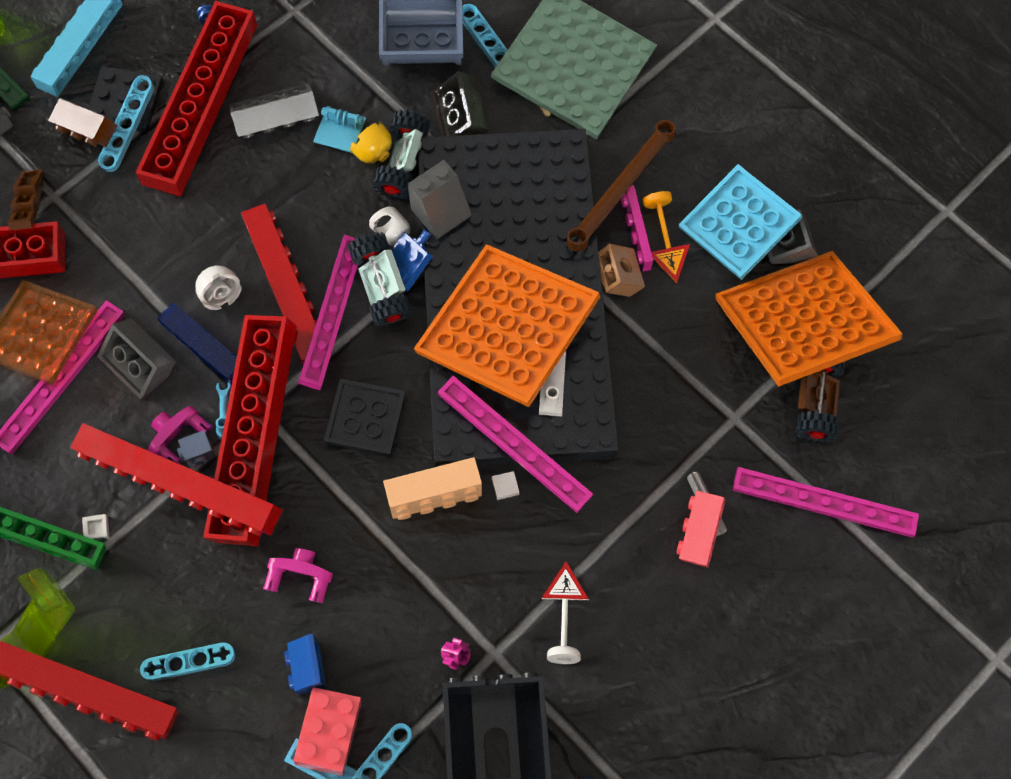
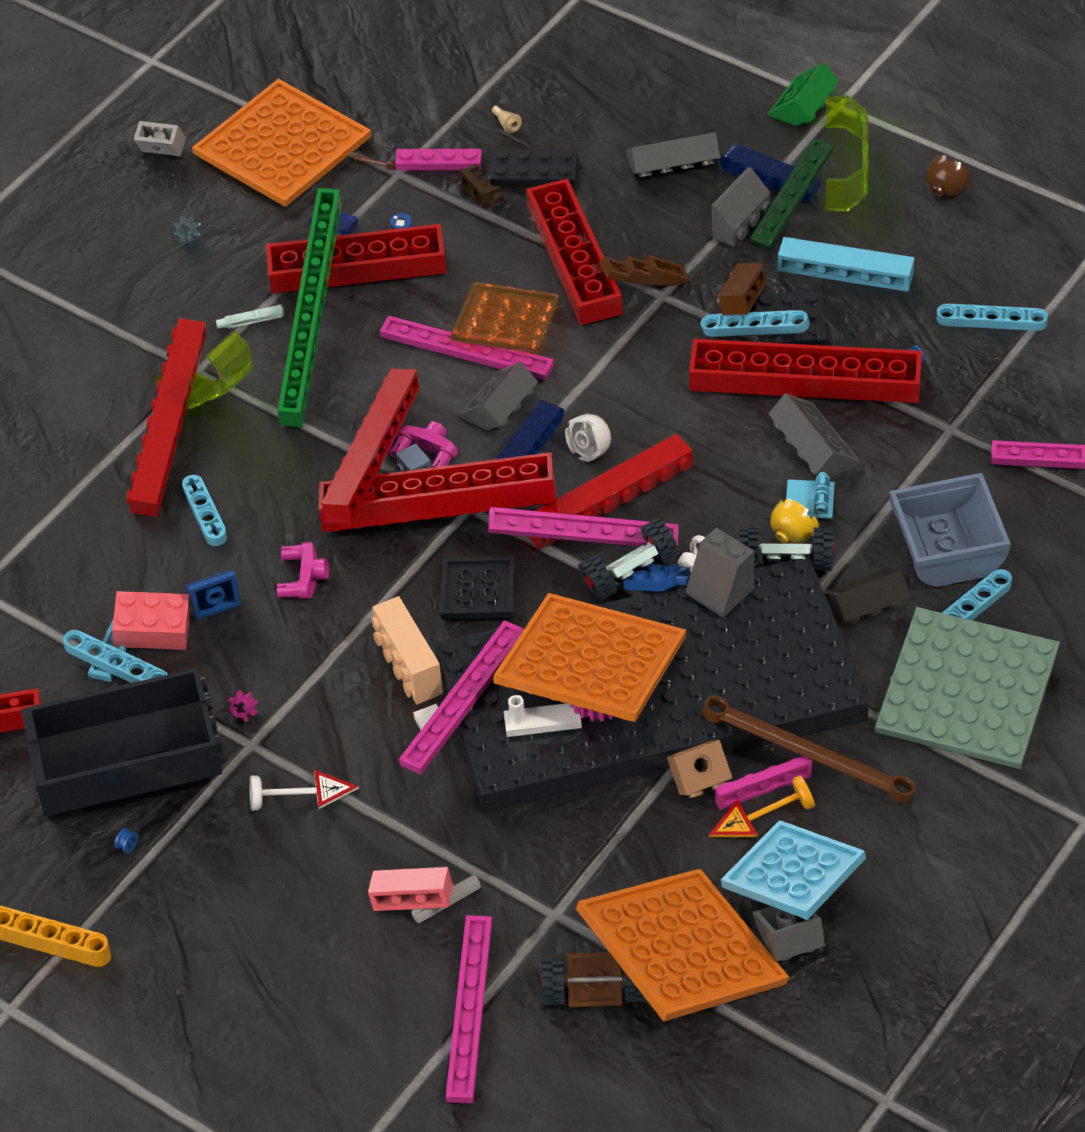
camera: 85 degrees right, 20 degrees down
(96, 527) = (321, 413): white tile -> none

